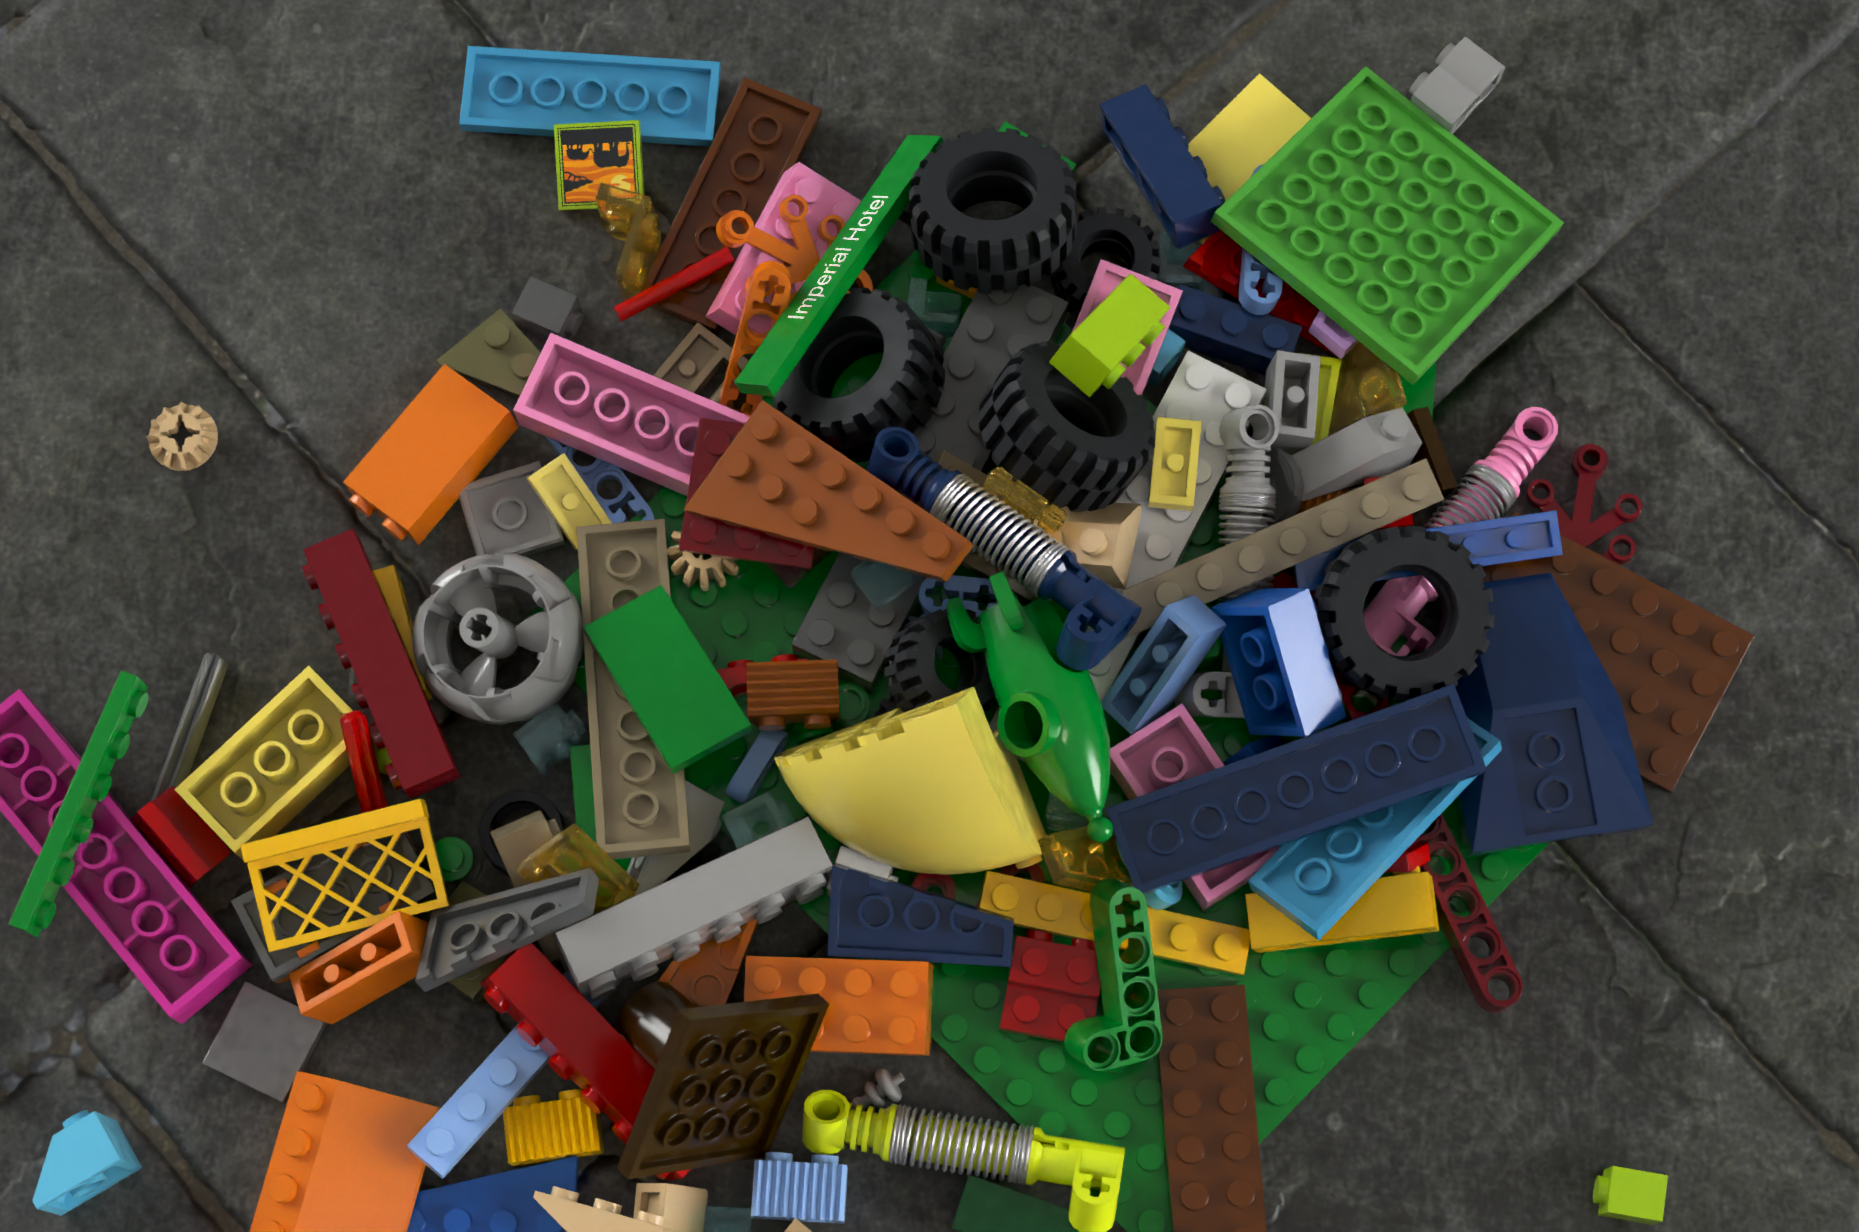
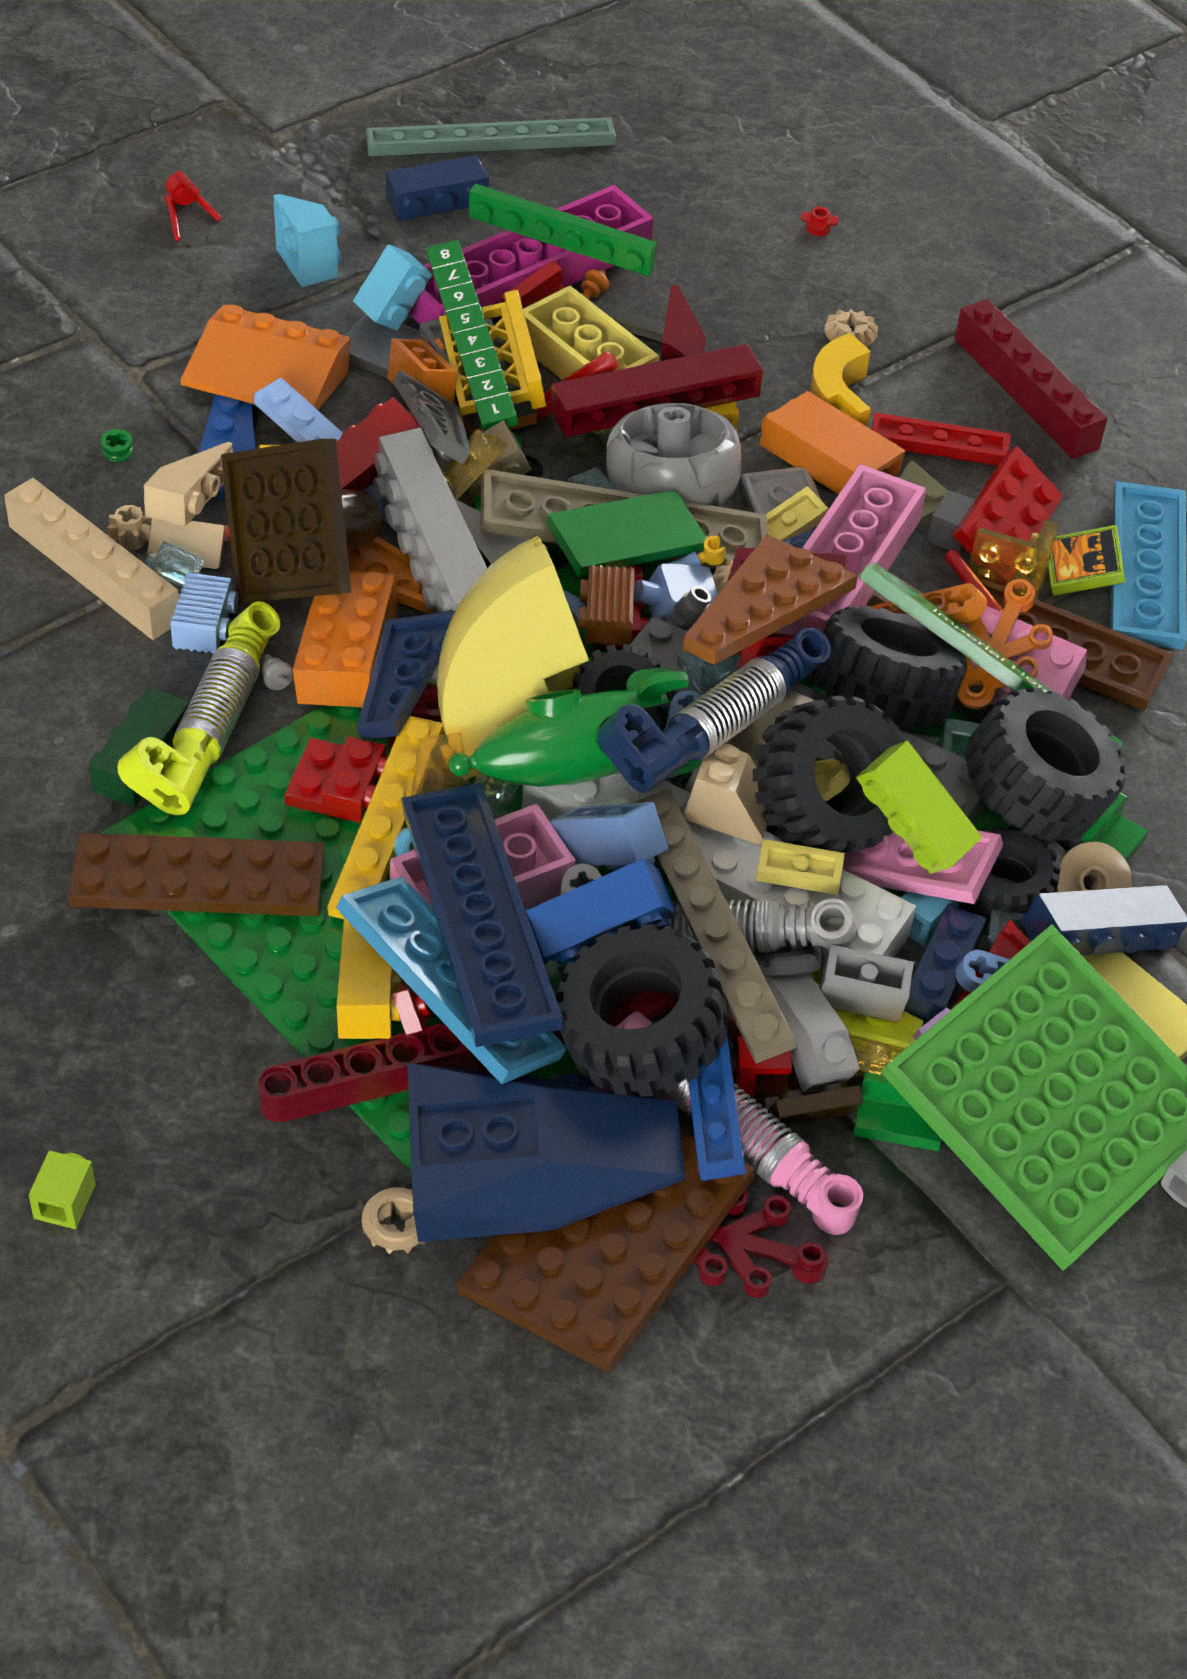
camera: 90 degrees right, 25 degrees down
(129, 774) = (594, 283): none -> orange hair
(203, 1023) = (392, 287): none -> medium azure brick
(262, 642) = (681, 331): none -> dark red slope
(275, 216) = (1031, 379): none -> dark red brick
(303, 462) = (836, 367): none -> yellow arch
(315, 902) = (471, 335): none -> green tile
(394, 328) = (943, 439): none -> red plate
(534, 247) = (1011, 502): none -> red plate
(741, 612) = (682, 588): none -> medium blue torso
(1024, 500) = (763, 716): clear yellow axle -> none
(1096, 177) = (1099, 862): none -> tan dish
(1118, 915) = (382, 787): green beam -> none
(1627, 865) = (378, 1215): none -> tan gear

